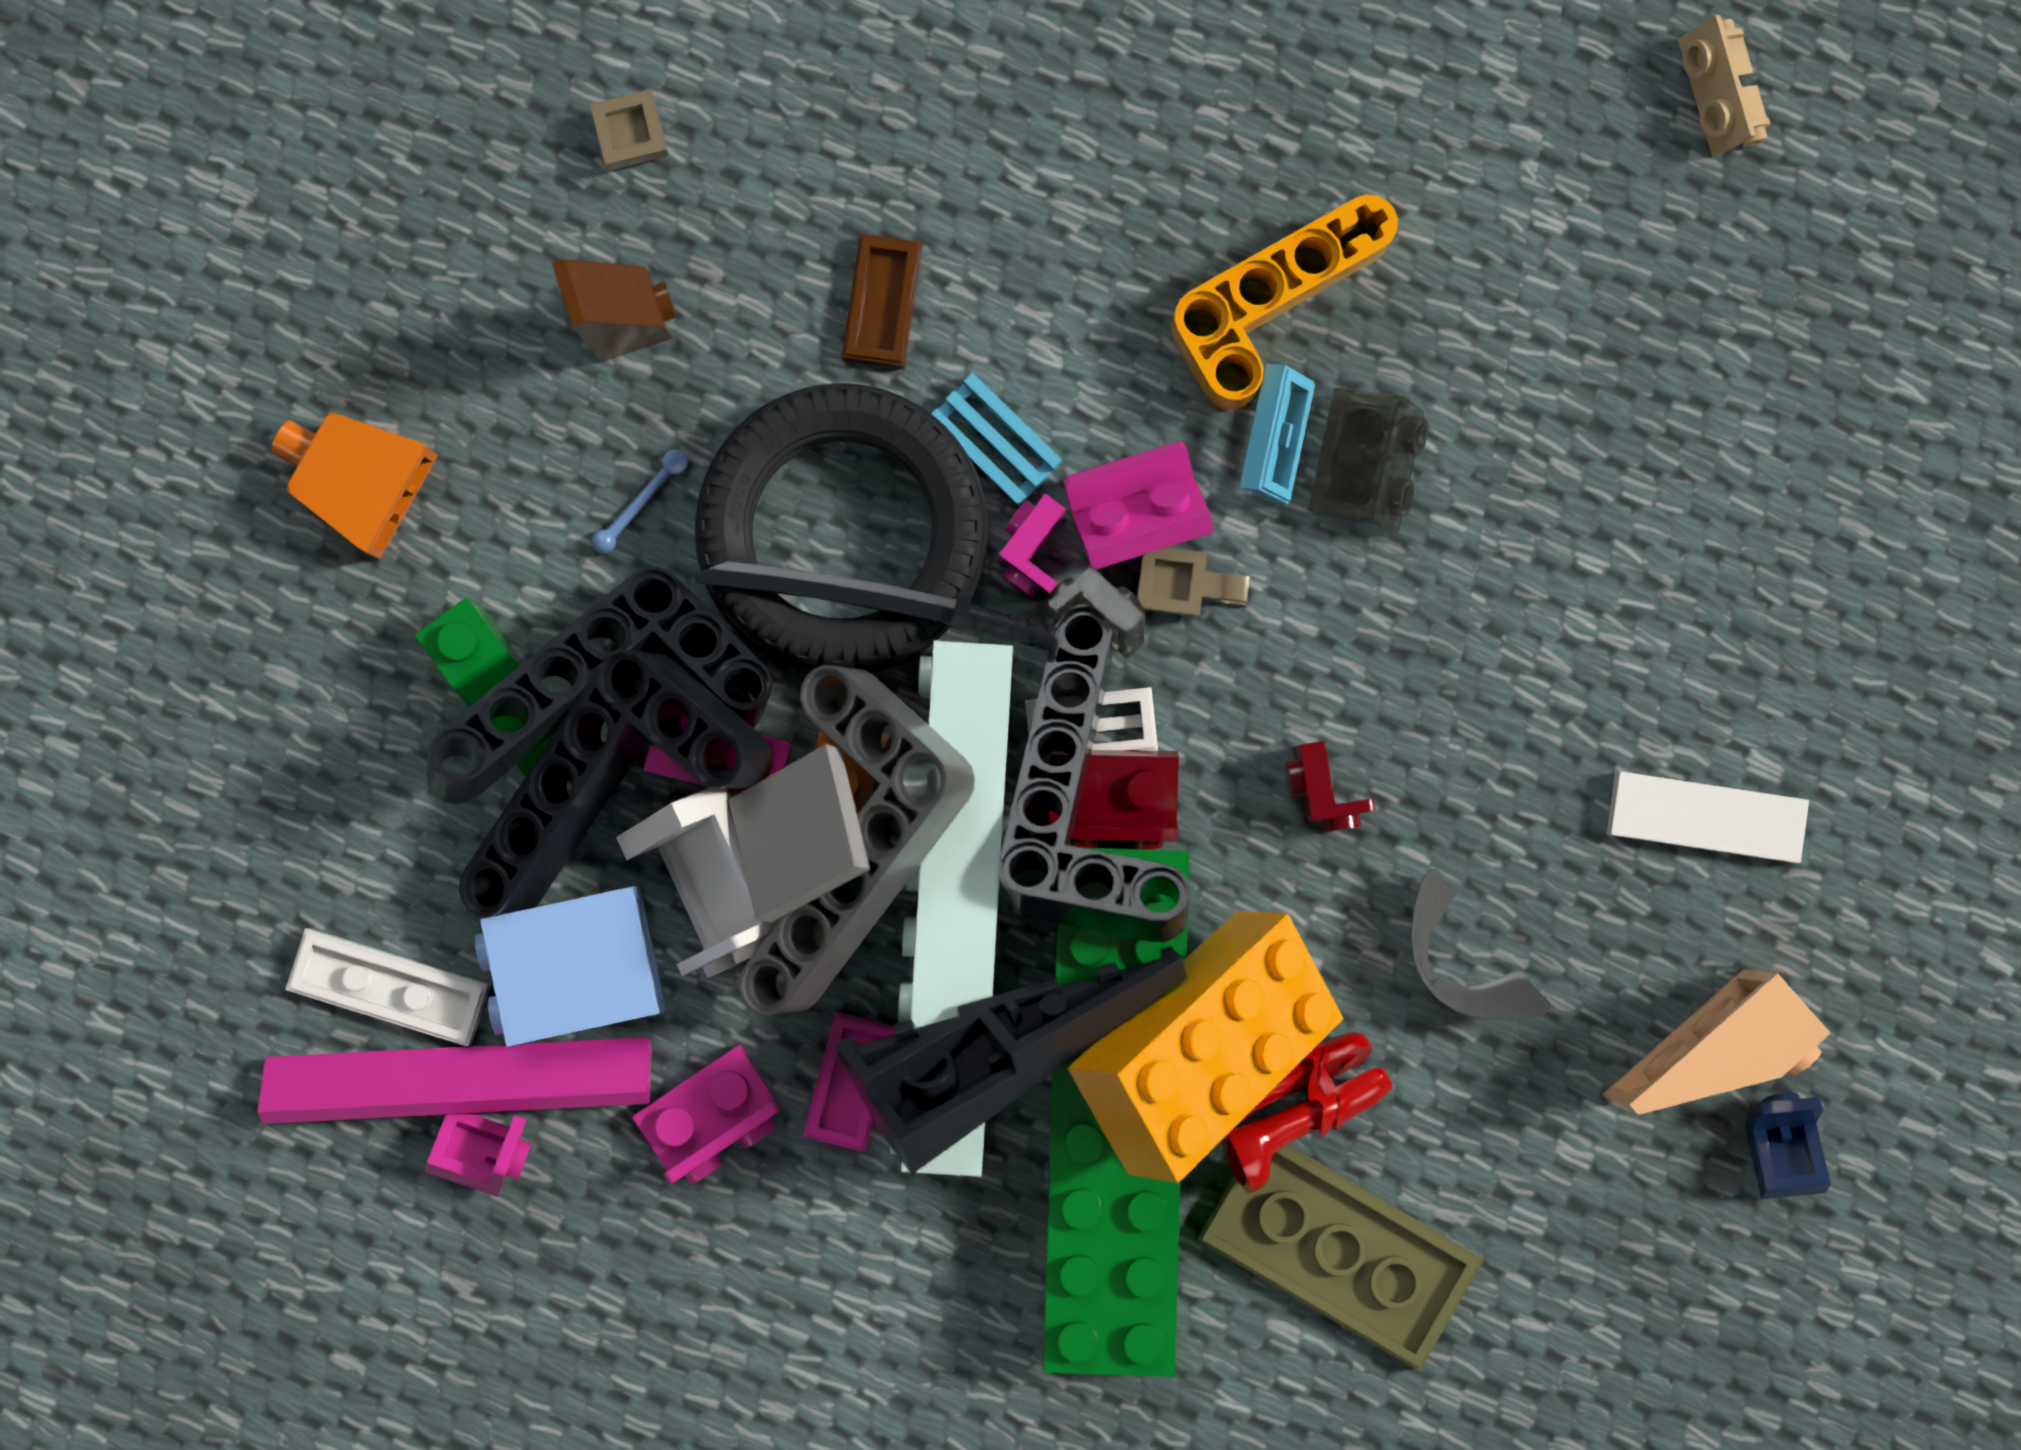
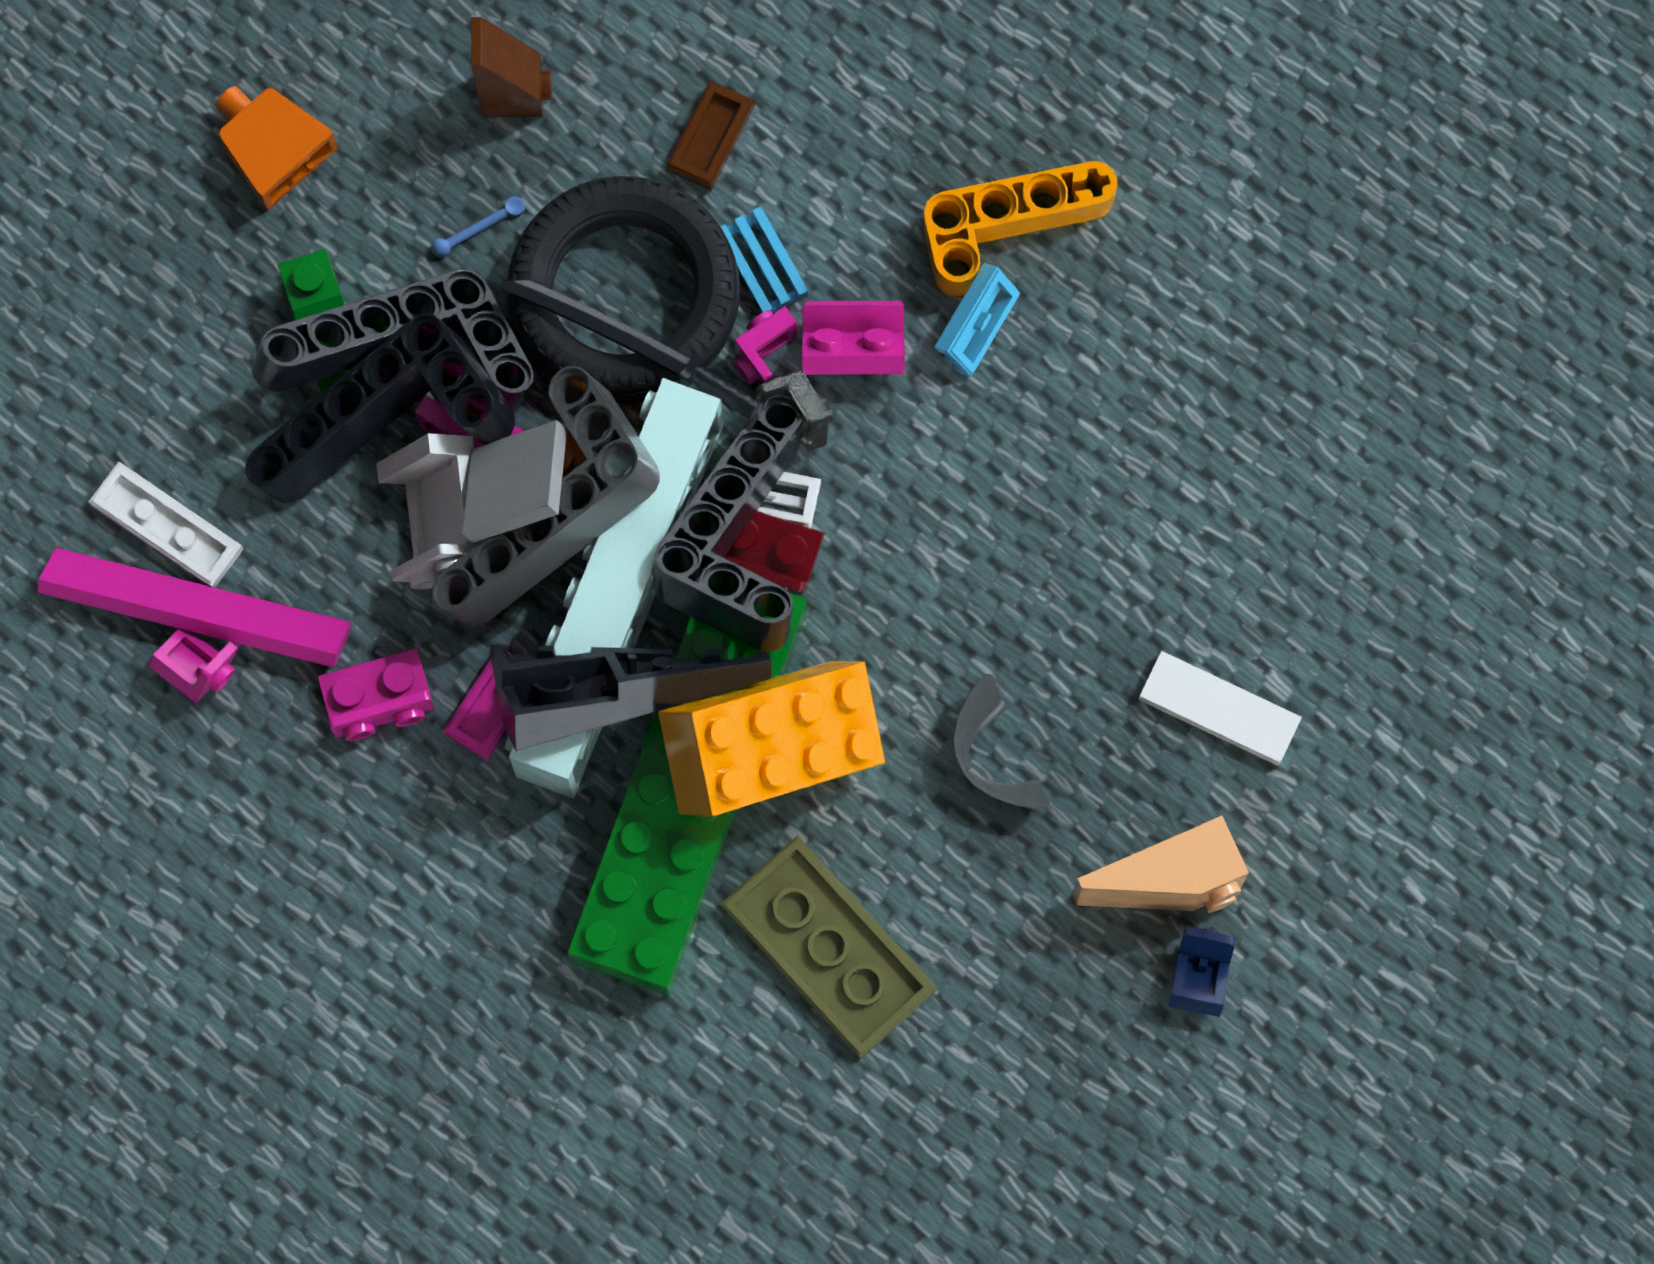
camera: 20 degrees right, 10 degrees down
(570, 966) = (310, 546): light blue panel -> none
(1177, 582) = (868, 406): dark tan plate -> none
(1311, 779) = (919, 582): dark red bracket -> none
(1324, 1109) = (865, 816): red piece -> none
(1368, 458) = (1042, 359): clear smoke bracket -> none
(1715, 61) = (1402, 146): tan hinge -> none

